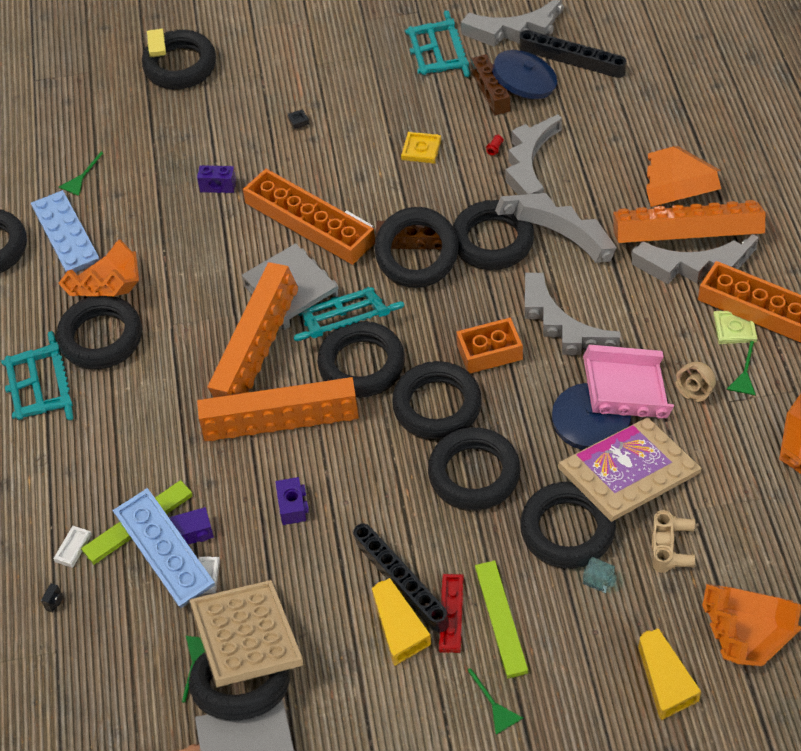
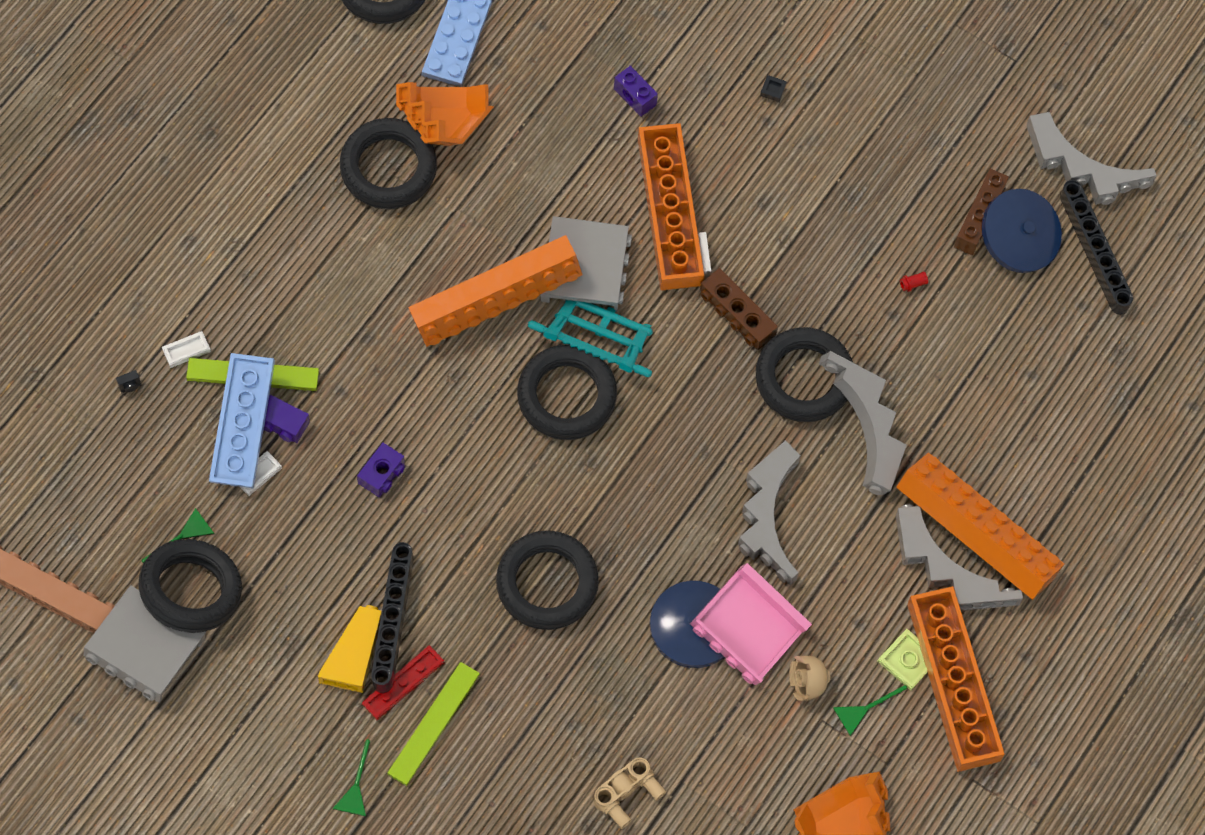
camera: 35 degrees right, 15 degrees up
(40, 406) = (279, 193): teal piece -> none
(245, 633) = (228, 552): tan plate -> none
(277, 409) = (450, 379): orange brick -> none
(421, 147) = (849, 221): yellow tile -> none
(430, 274) = (747, 354): black tyre -> none
(436, 372) = (593, 454): black tyre -> none
(440, 65) = (1001, 92): teal piece -> none
(489, 345) = (680, 481): orange brick -> none
(527, 143) = (922, 318): light grey arch -> none
(558, 555) = (554, 736): black tyre -> none
(599, 575) = (542, 763): clear light blue brick -> none
(629, 468) = (664, 700): plate -> none
(678, 175) = (1028, 471): orange panel -> none

